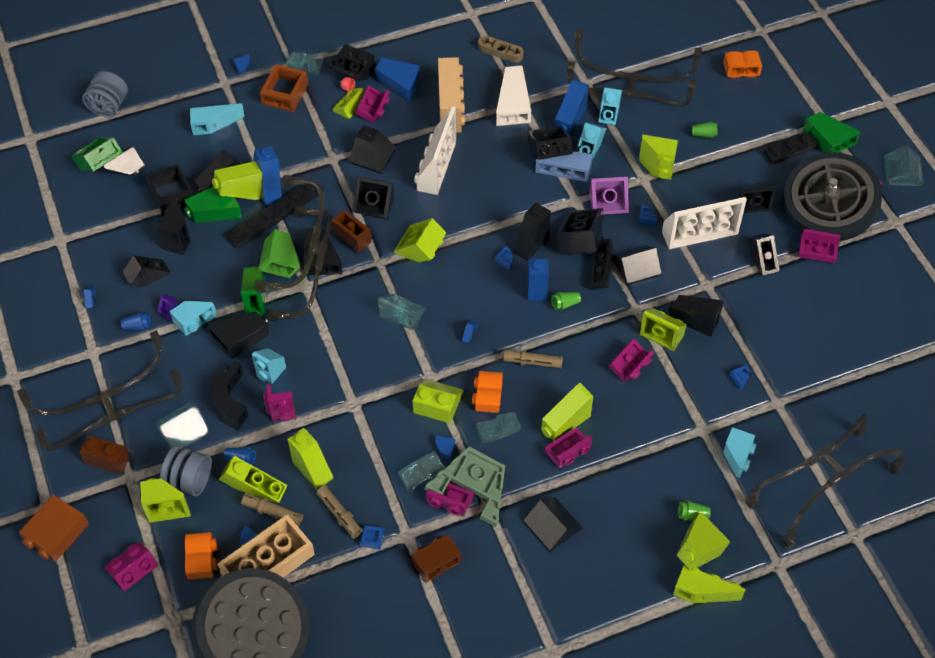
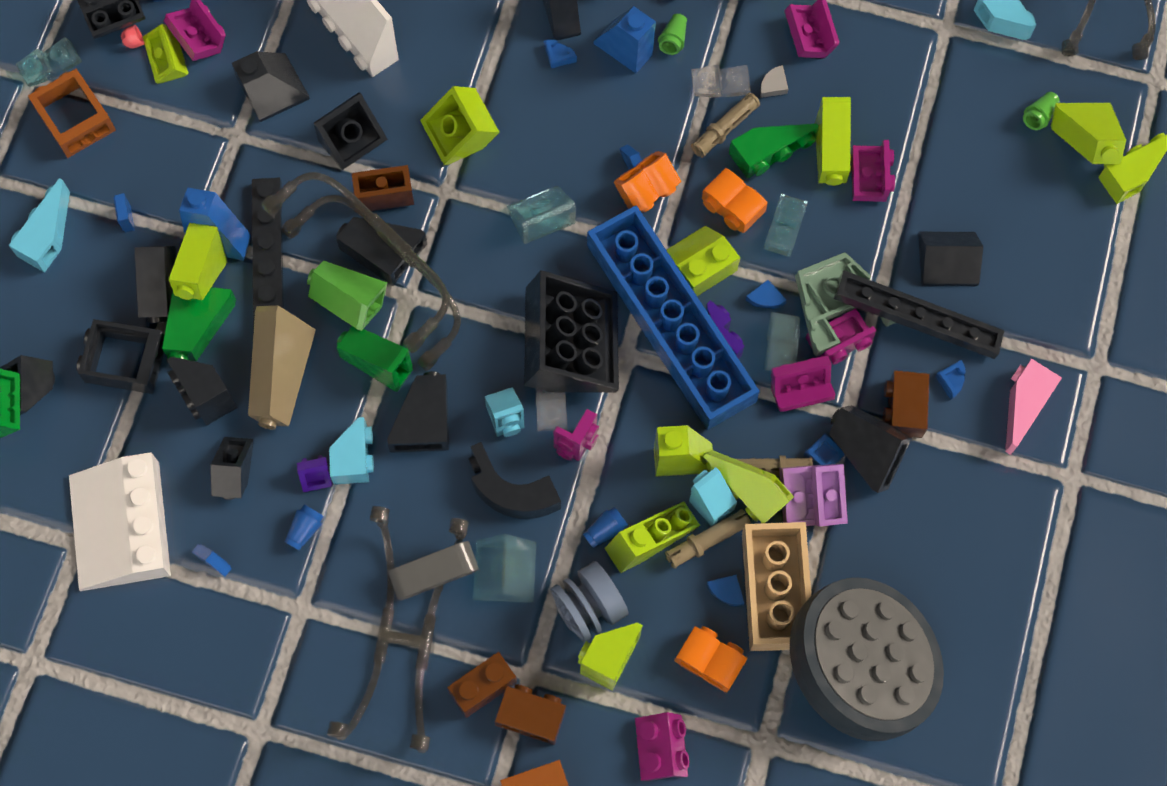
camera: 55 degrees left, 15 degrees up
(83, 248) = (119, 522): none -> white slope
(104, 489) = (531, 714): none -> reddish brown brick
(151, 390) = (433, 570): none -> dark grey beam
(214, 251) = (277, 365): none -> dark tan slope
(248, 141) = (123, 212): none -> blue tile
(294, 380) = (550, 410): none -> clear slope
(295, 491) = (712, 496): none -> medium azure slope
(315, 507) = (755, 487): none -> lime slope
(337, 365) = (570, 336): none -> black slope
(338, 543) = (817, 494): none -> medium lavender slope
(387, 406) = (672, 317): none -> blue brick
(391, 552) = (869, 445): none -> black slope
(403, 435) = (722, 320): none -> dark purple slope
(403, 494) = (802, 383): none -> magenta bracket
(461, 342) = (648, 182): none -> orange brick
(476, 575) = (952, 379): none -> blue tile
(492, 622) = (1026, 399): none -> bright pink slope
(496, 527) = (919, 314): none -> black plate
(536, 385) = (766, 145): none -> green slope
(558, 341) = (726, 82): none -> clear slope
(582, 366) = (774, 83): none -> light grey tile

